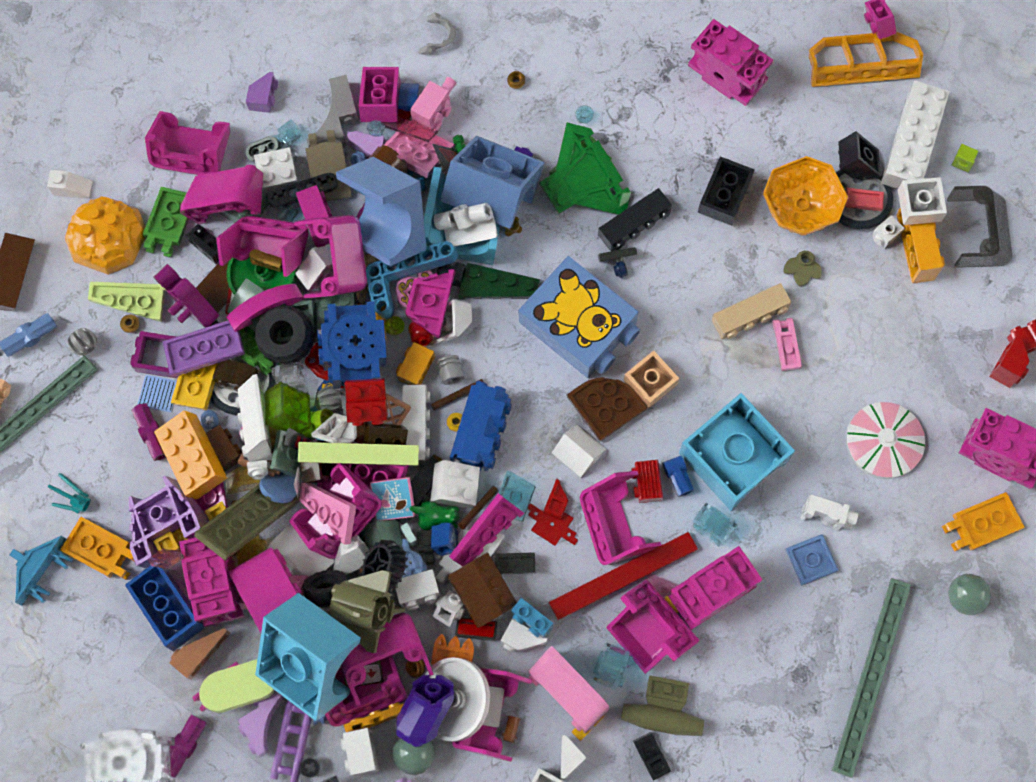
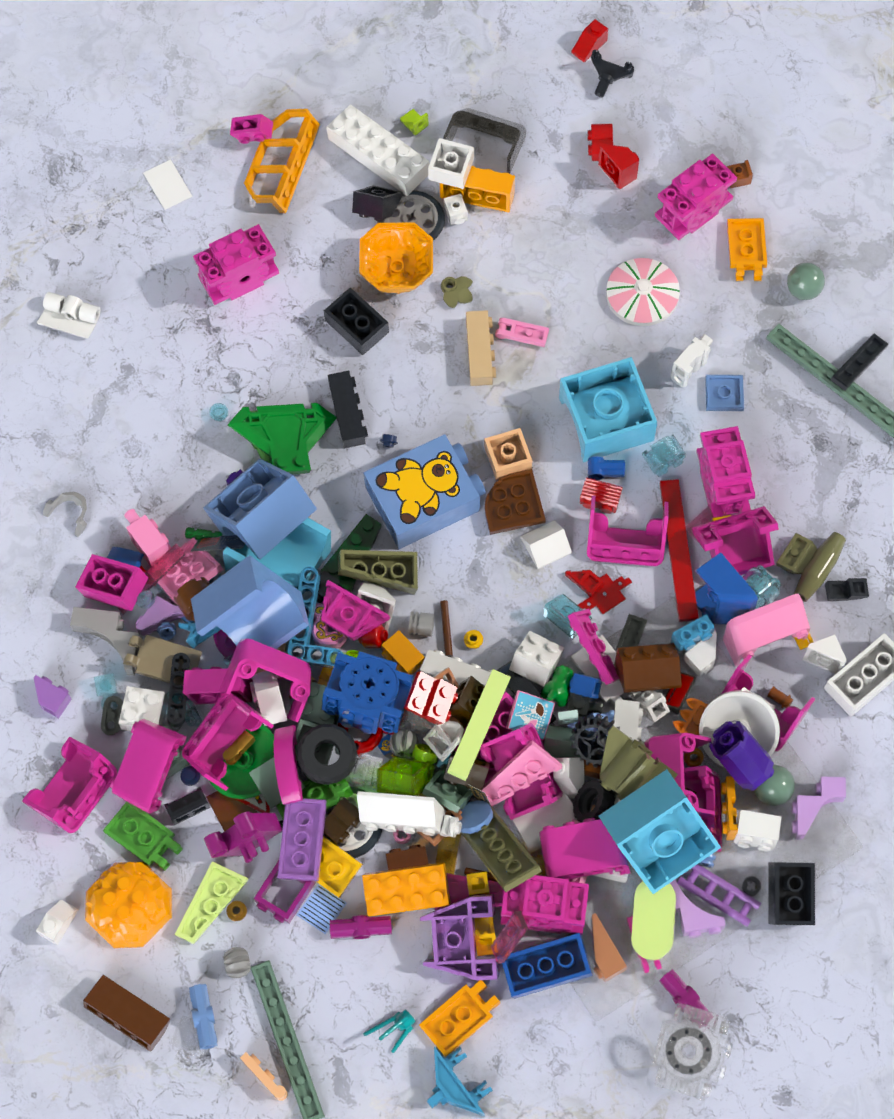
camera: 70 degrees left, 5 degrees down
(211, 413) = (376, 860): medium blue bush -> none
(293, 438) = (437, 781): black sticker -> none
(467, 224) = (294, 545): white panel -> none
(479, 506) = (567, 648): reddish brown piece -> none
(481, 425) = (490, 615): blue brick -> none
(489, 319) = (384, 568): none -> olive wedge
(516, 75) = (150, 454): pearl gold plate -> none
(583, 629) = (725, 591): none -> blue windscreen
(617, 255) = (374, 437): pearl dark grey plate -> none
(864, 199) = (419, 211): coral tile -> none
(906, 682) = (859, 362): none -> black tile

